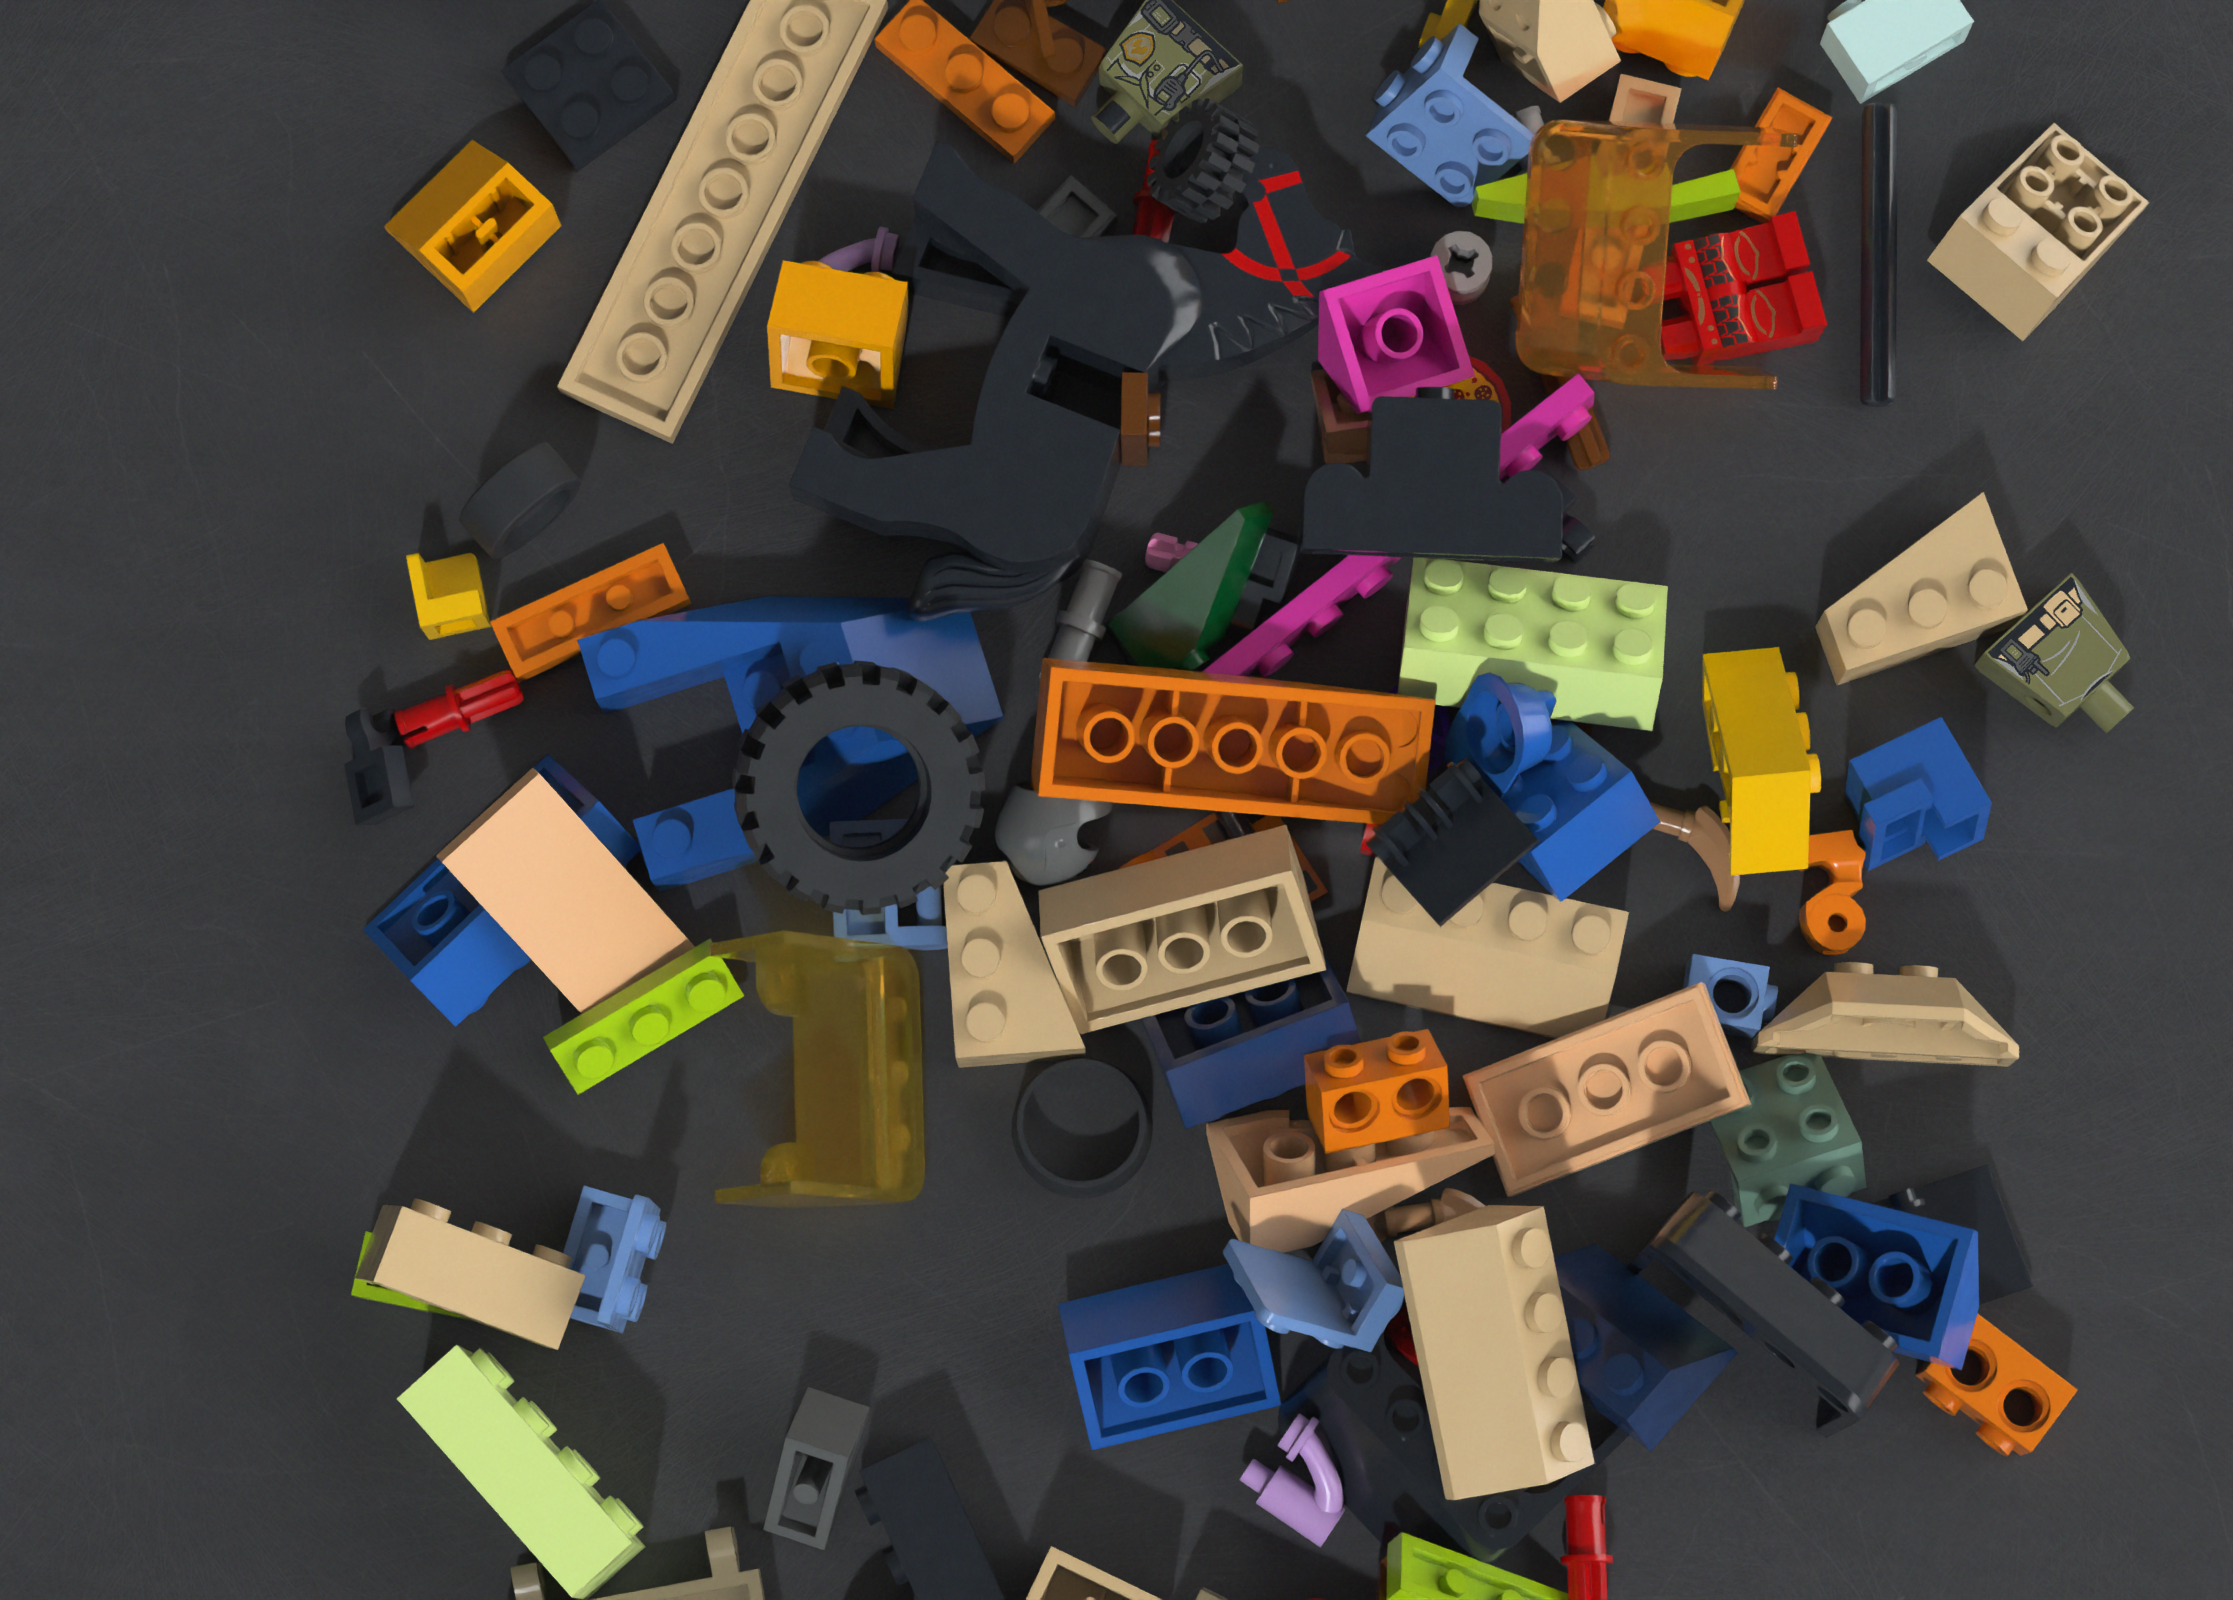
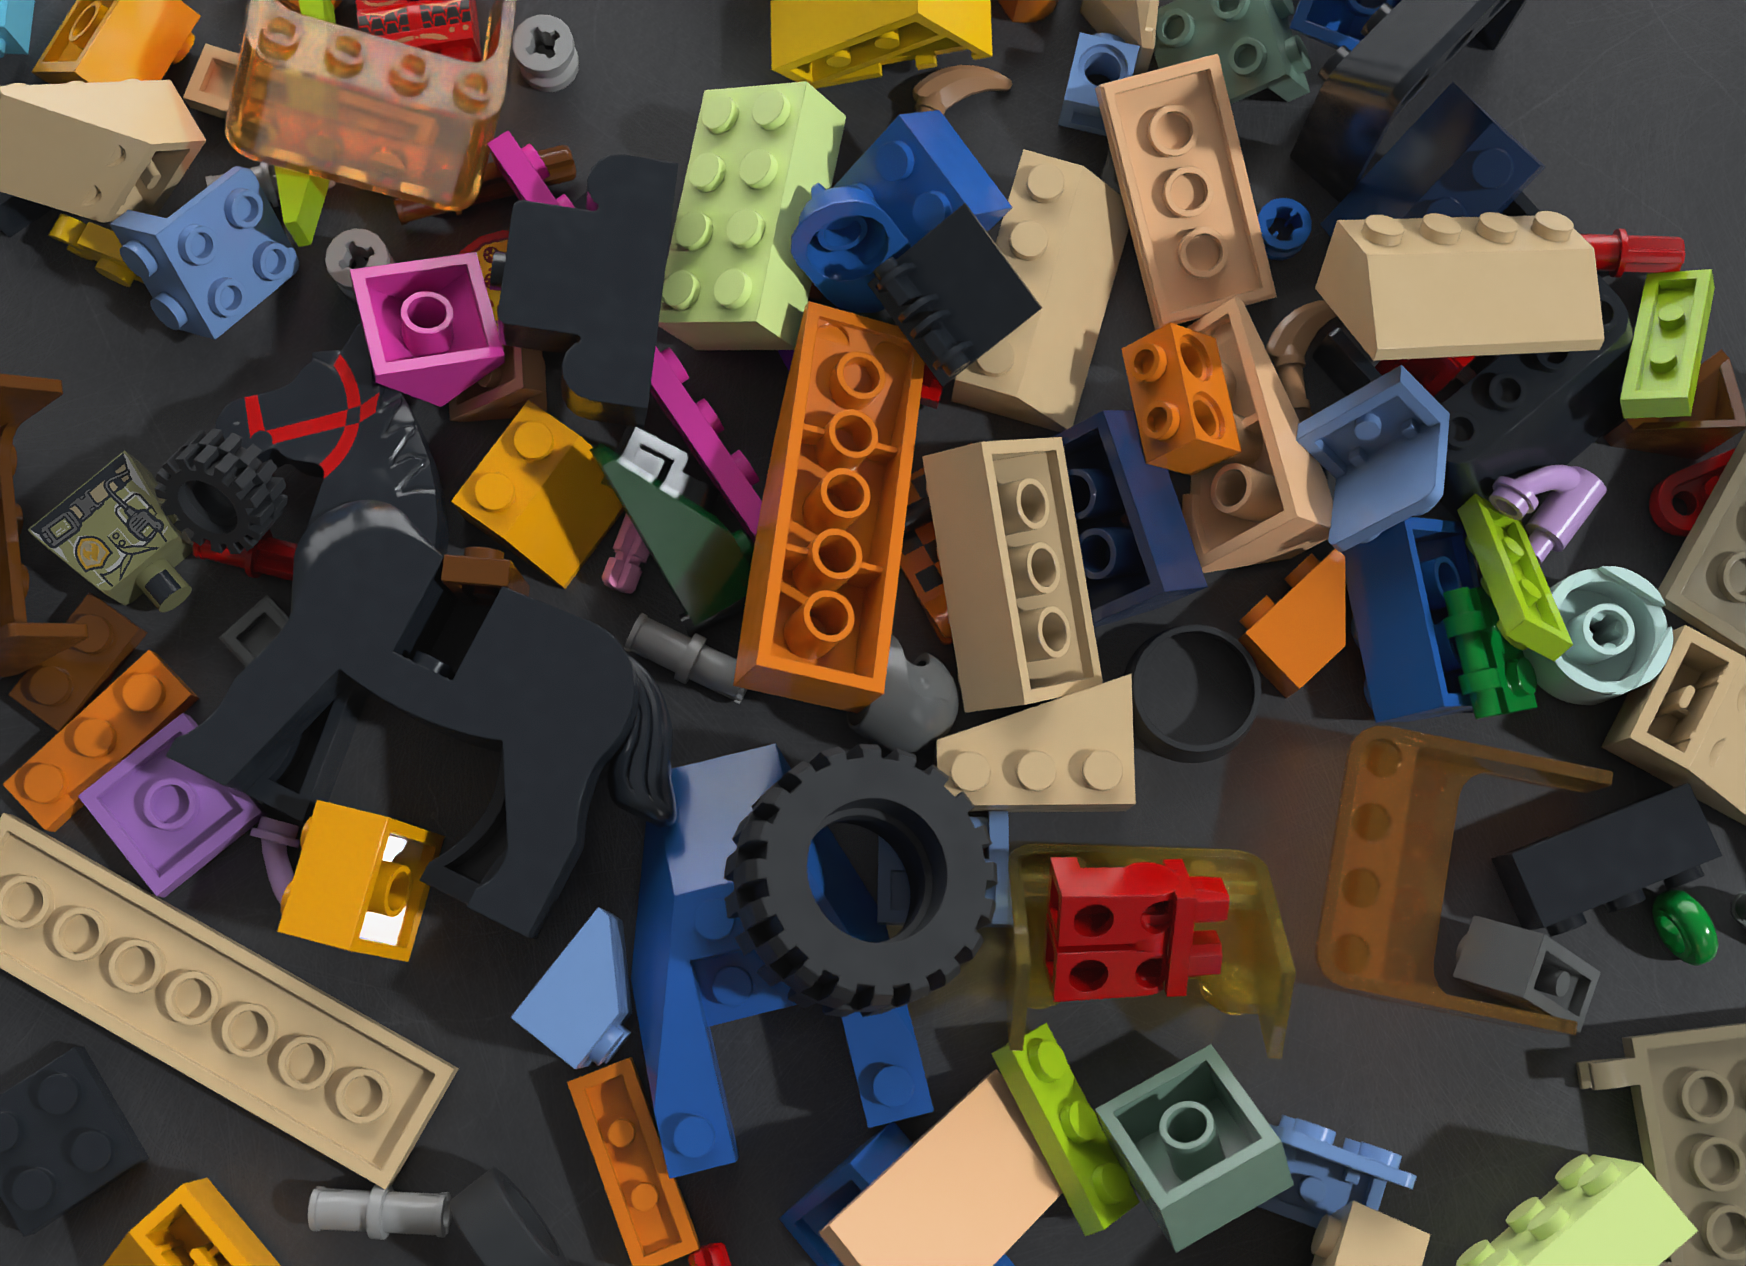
camera: 95 degrees left, 0 degrees up
(536, 383) = (379, 1211): none -> light grey pin
(629, 1129) = (1195, 1147): none -> sand green brick
(742, 549) = (583, 996): none -> medium blue slope
(832, 1058) = (1129, 929): none -> red hips
(890, 142) = (166, 813): none -> medium lavender plate
(913, 1325) = (1394, 863): none -> clear orange windscreen
(1137, 1416) = (1493, 669): none -> green plate
(1150, 1489) = (1628, 639): none -> light aqua brick
(1151, 1229) = (1301, 630): none -> orange slope
(1208, 1428) = (1514, 580): none -> lime plate
(1232, 458) = (541, 495): none -> light orange slope
(1596, 1184) = (1296, 215): none -> blue bush
(1698, 436) = (542, 67): none -> light grey wheel

